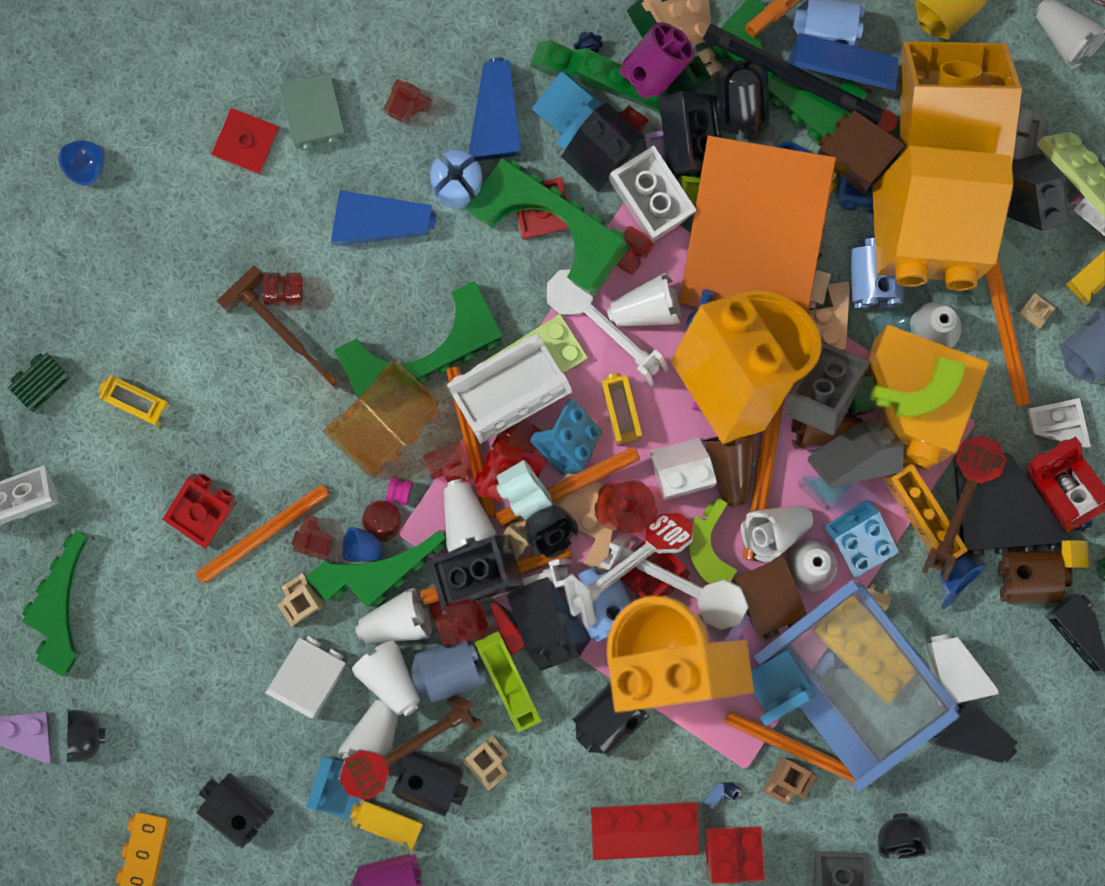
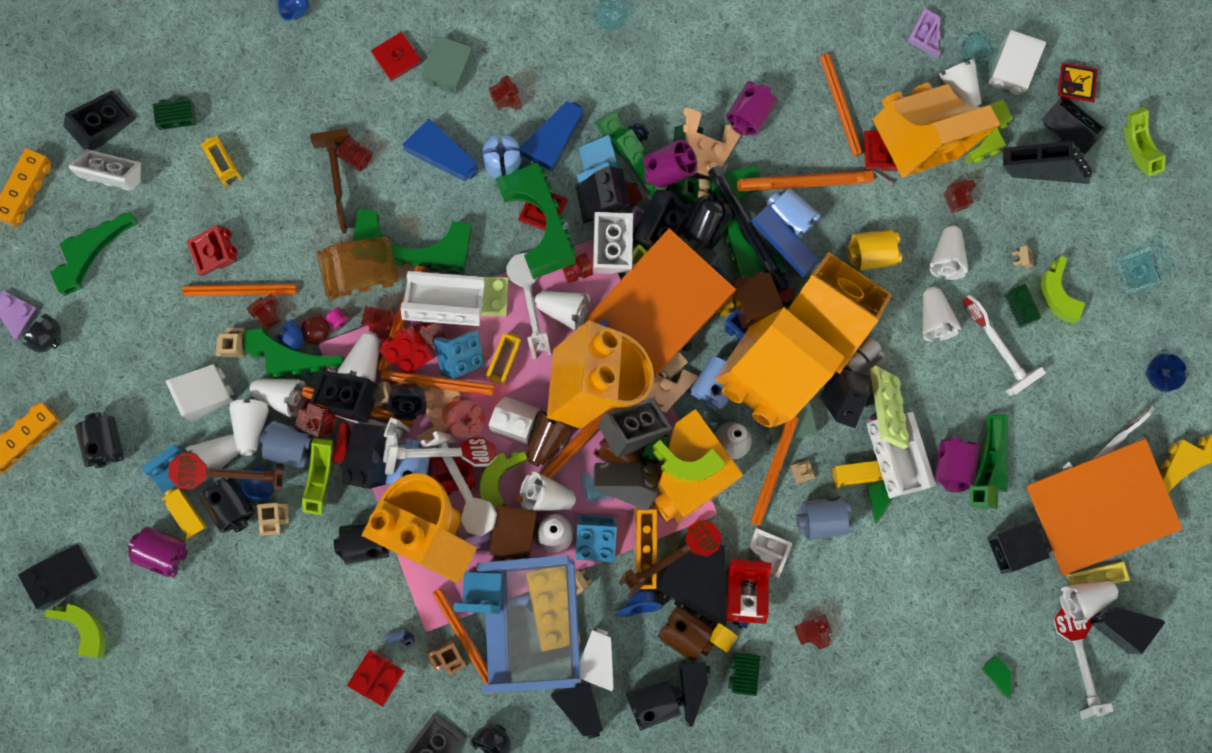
camera: 30 degrees right, 5 degrees down
(450, 742) = (257, 489): none -> blue helmet
(523, 490) = (406, 364): light aqua brick -> none
(644, 830) = (336, 625): red slope -> none
(1050, 675) = (655, 703): none -> black cylinder

